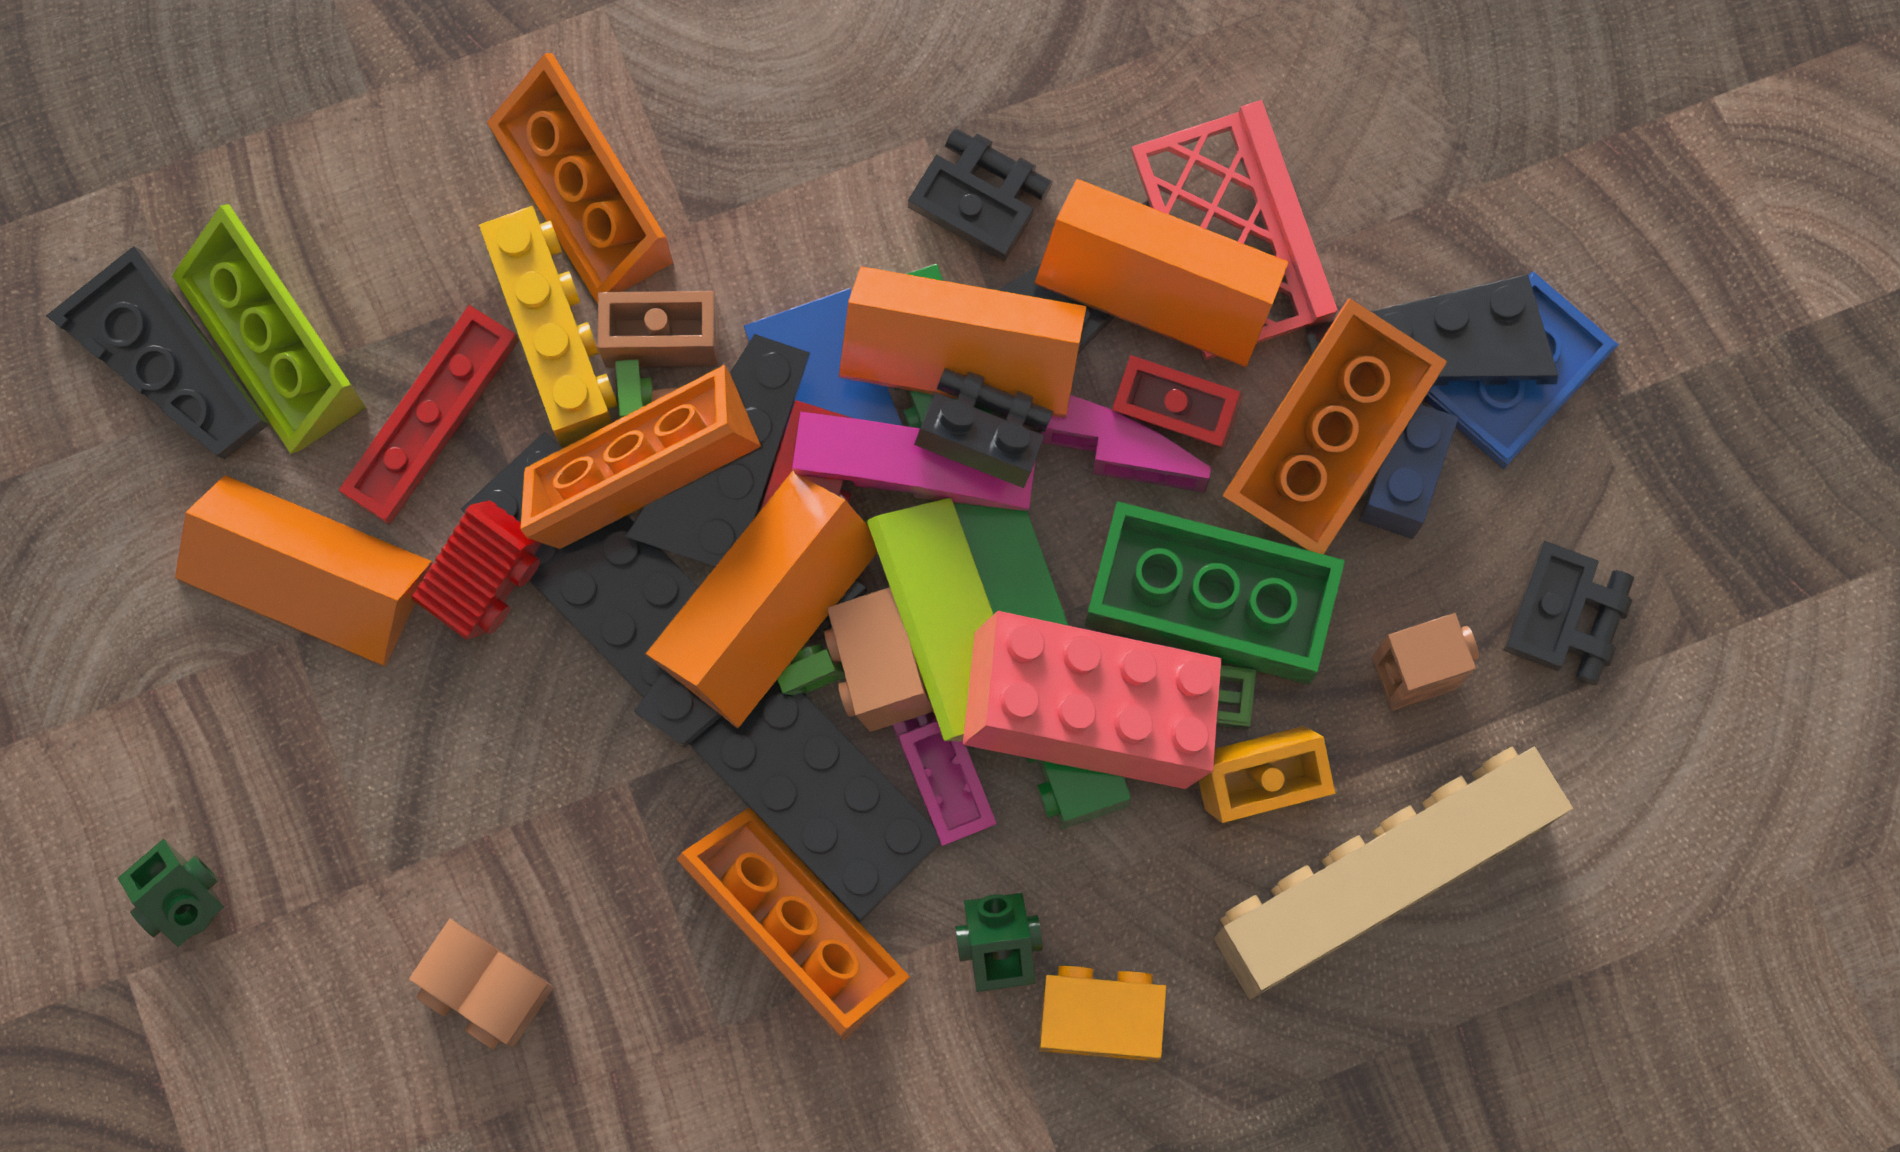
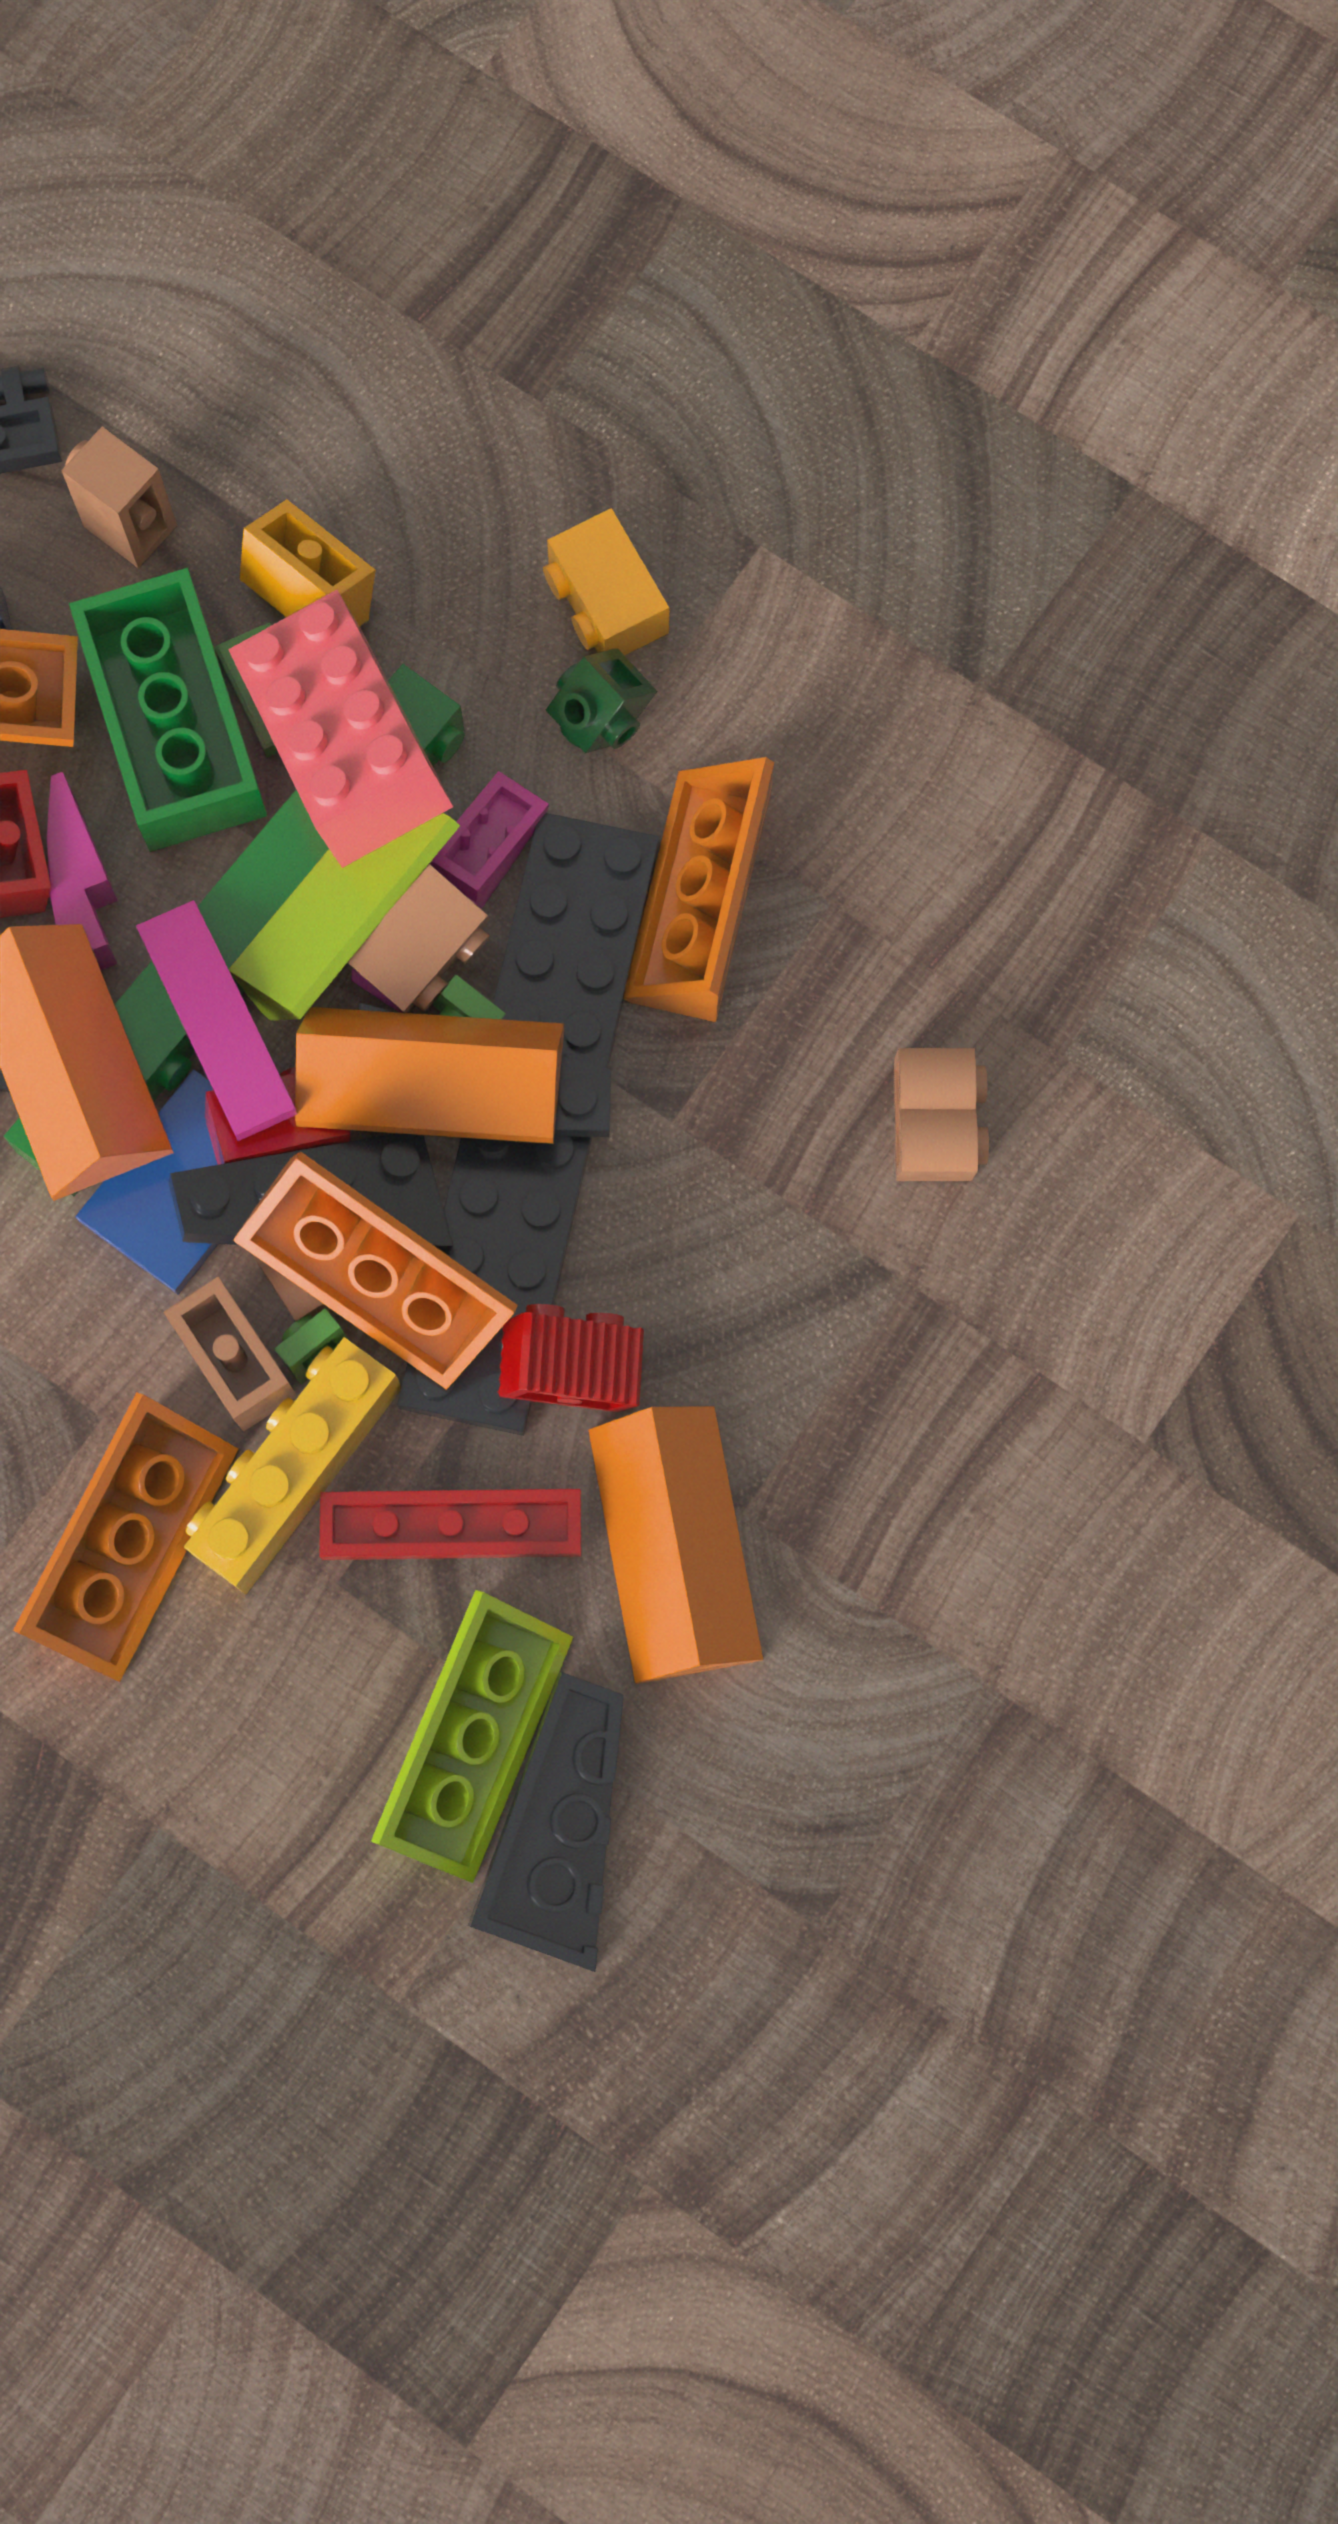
camera: 125 degrees left, 0 degrees up
(171, 893) = (1050, 1434): dark green brick -> none
(979, 438) = (158, 965): black plate -> none
(1397, 869) = (327, 419): tan brick -> none

